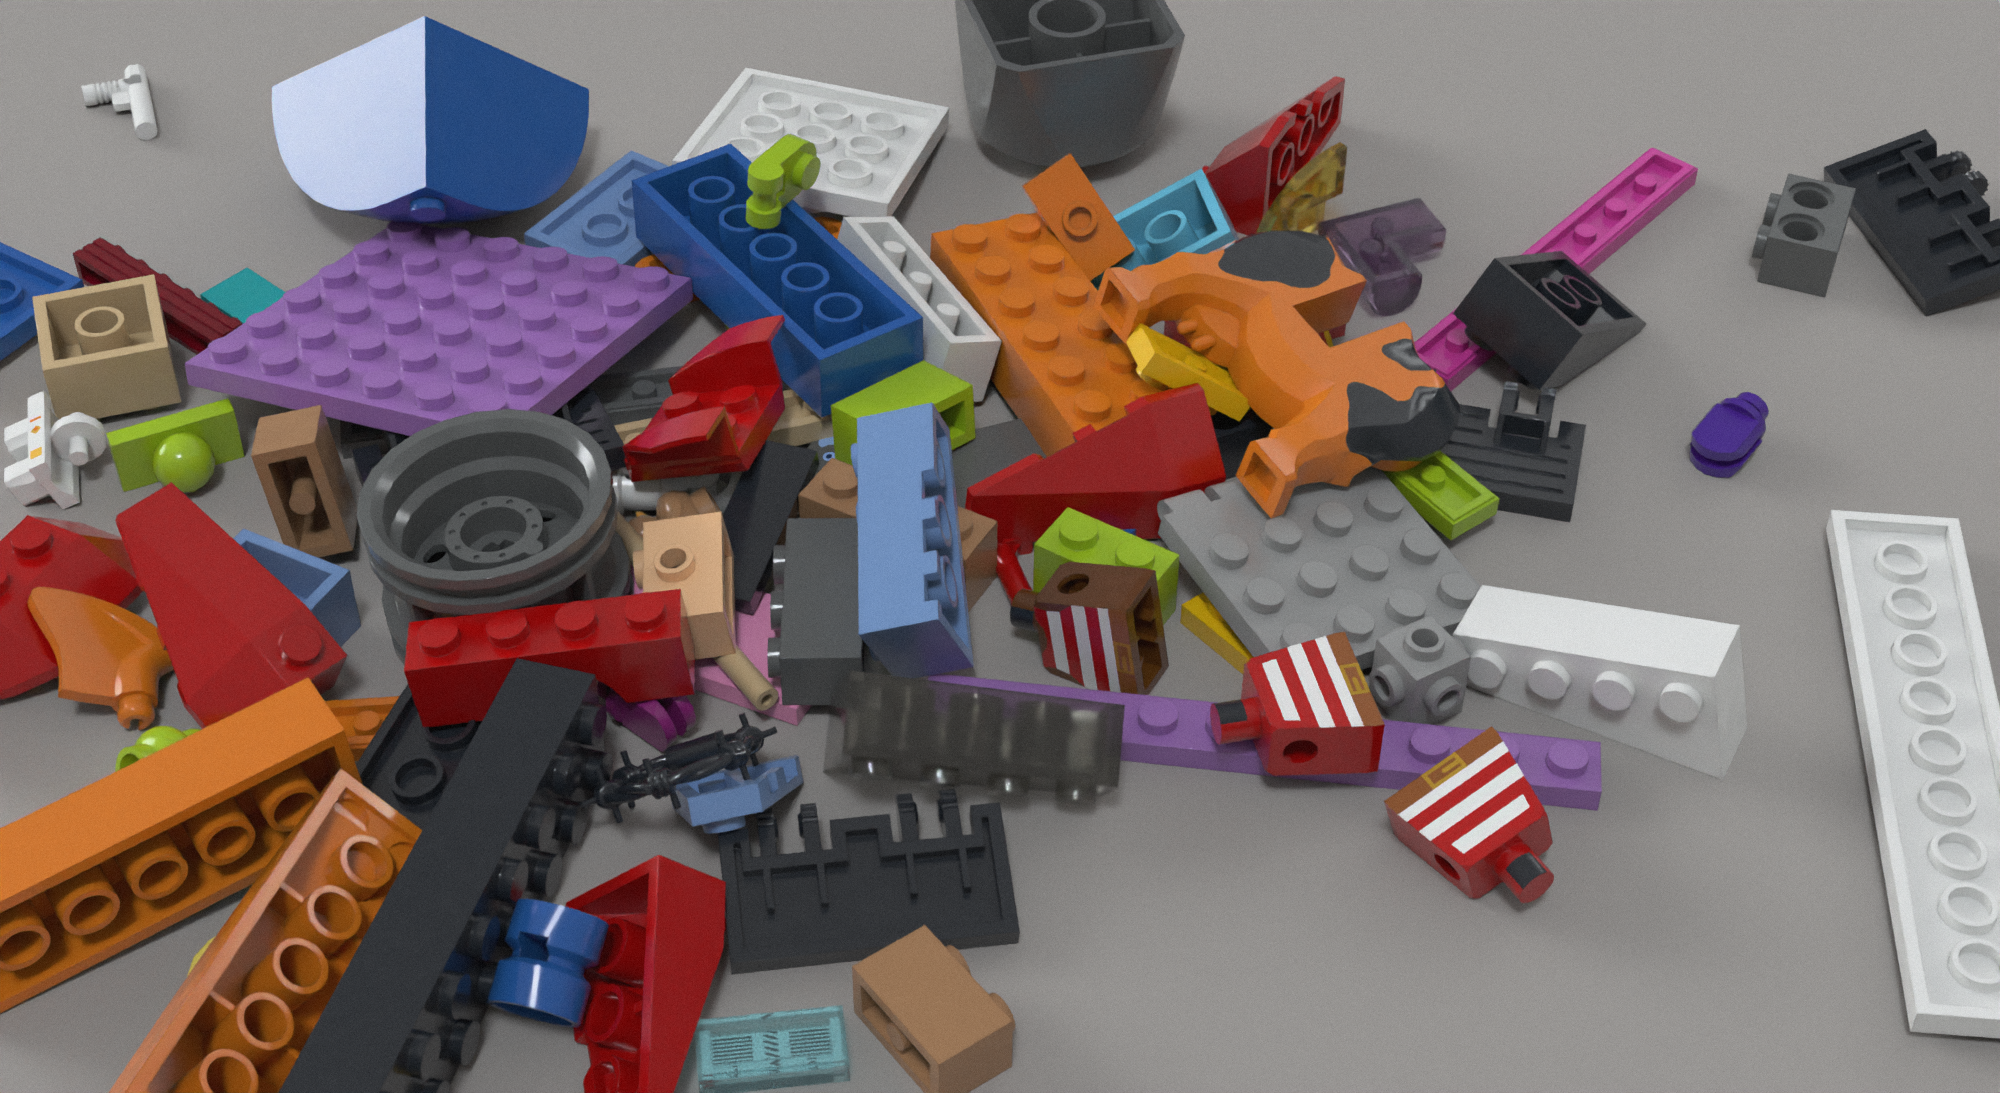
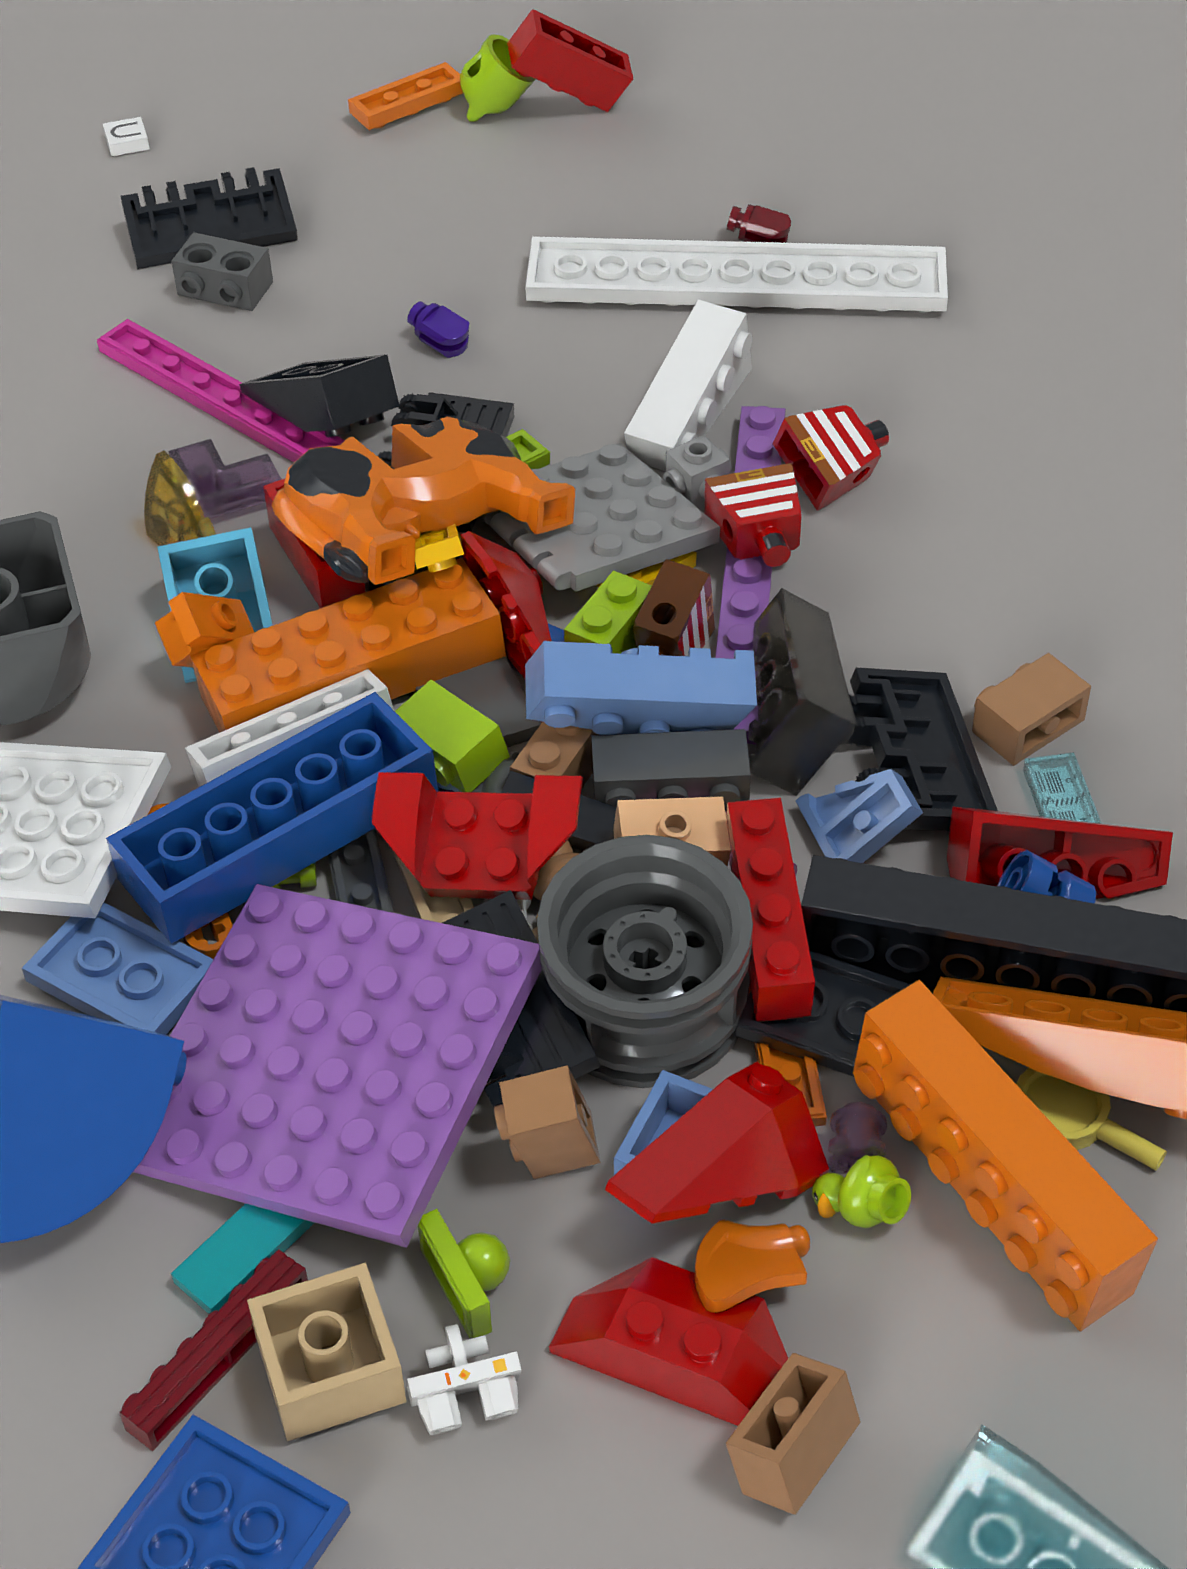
camera: 90 degrees left, 5 degrees up
(686, 760) = (815, 805): black piece -> none
(779, 178) = (200, 777): lime plate -> none
(1263, 160) = (104, 528): red wedge -> none

